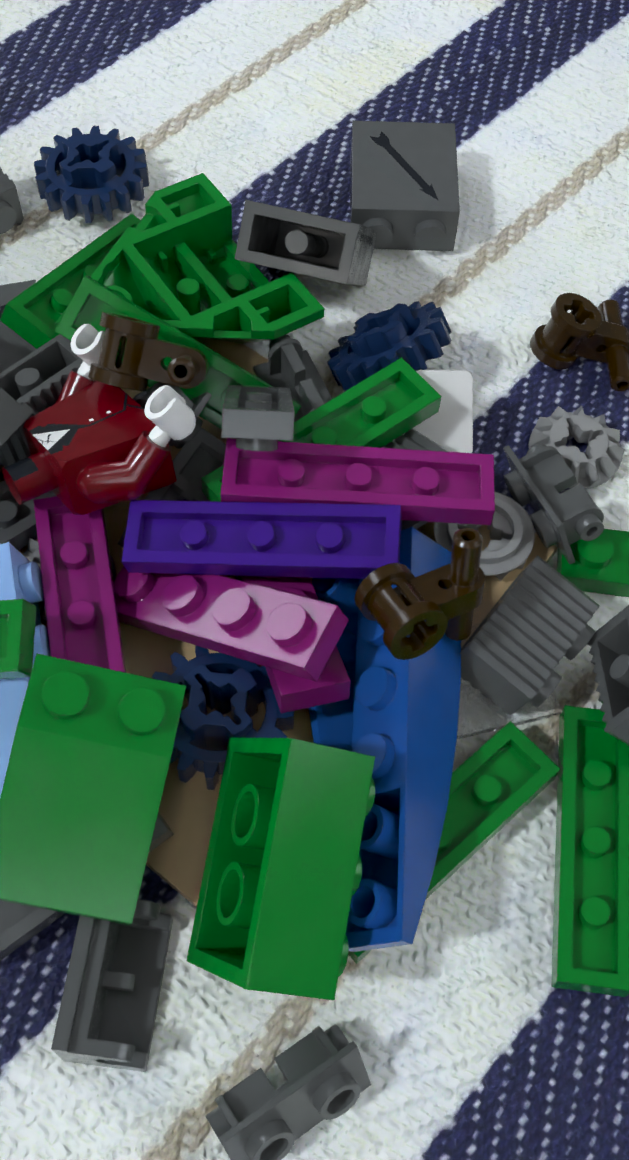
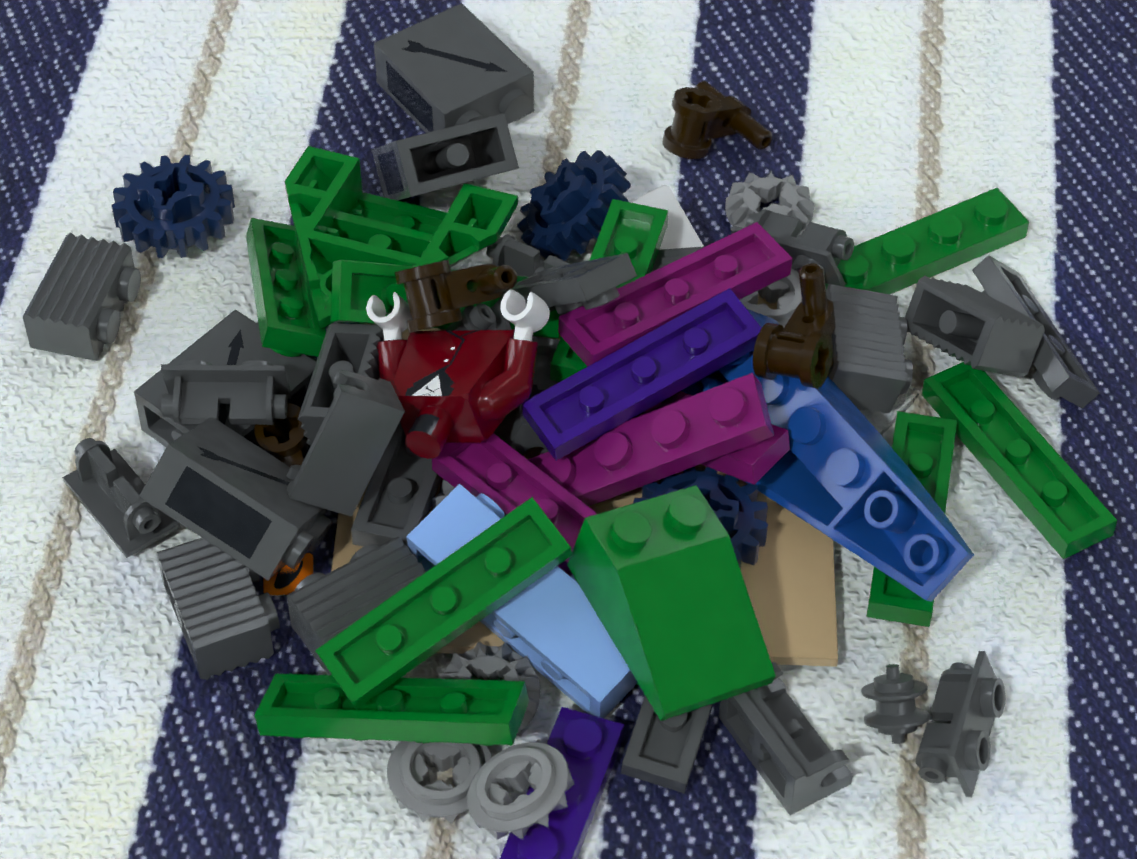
camera: 35 degrees left, 10 degrees down
(239, 1029) = (895, 704): none -> dark grey wheel
(283, 866) = (845, 566): green brick -> none

